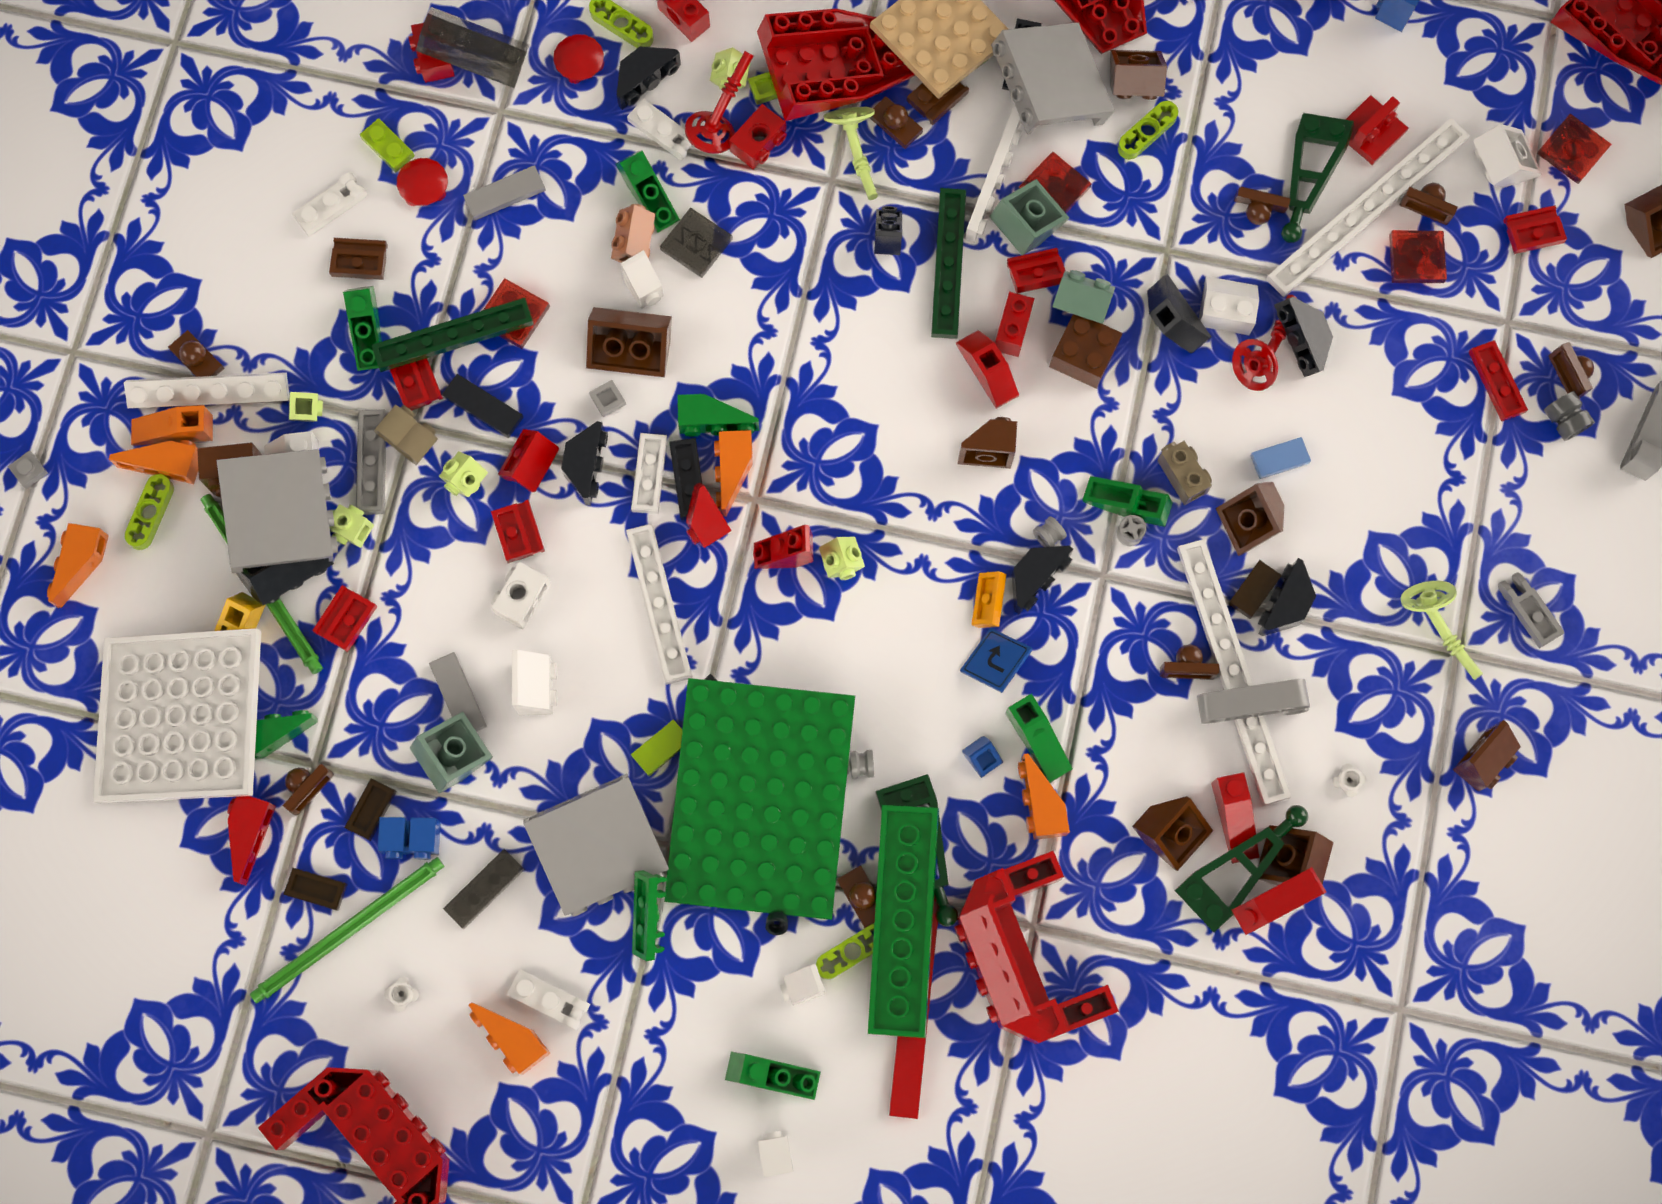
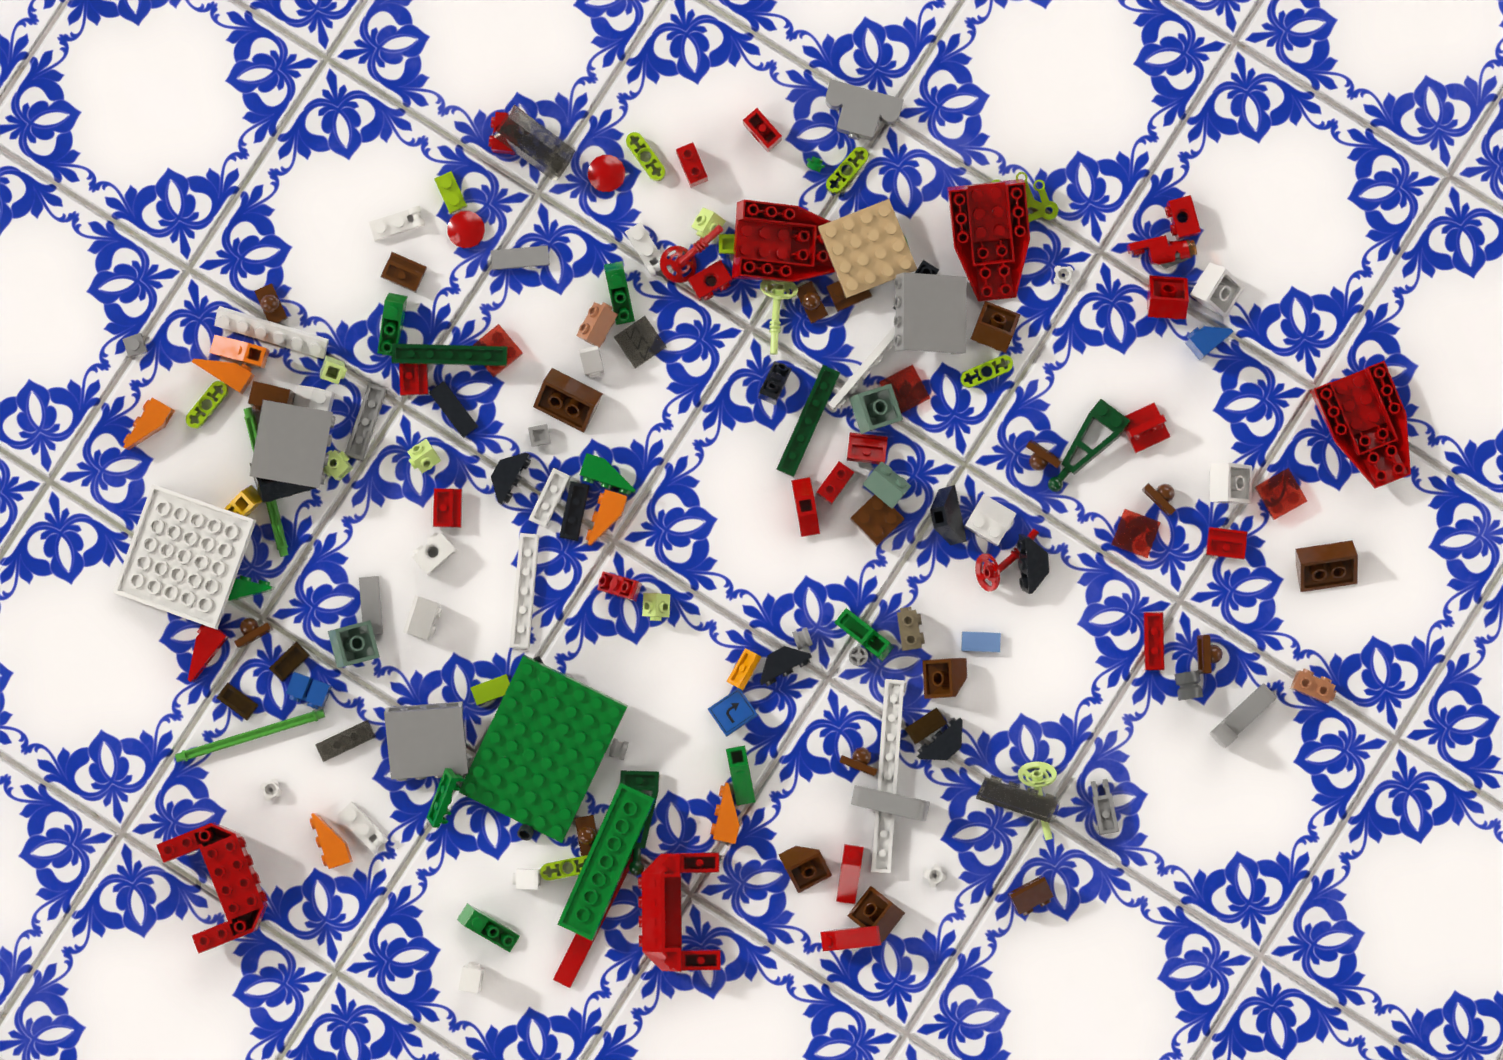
camera: 25 degrees right, 10 degrees up
(344, 618) = (313, 527): red plate -> none
(406, 434) = (395, 414): dark tan brick -> none
(529, 460) = (471, 460): red panel -> none
(644, 71) = (647, 202): black slope -> none
(704, 518) = (574, 547): red slope -> none
(982, 756) = (700, 771): blue slope -> none
(991, 444) = (785, 564): reddish brown slope -> none
(1206, 902) = (807, 917): dark green plate -> none
(1367, 207) = (1117, 484): white plate -> none
(1422, 636) = (1019, 800): none -> clear smoke slope

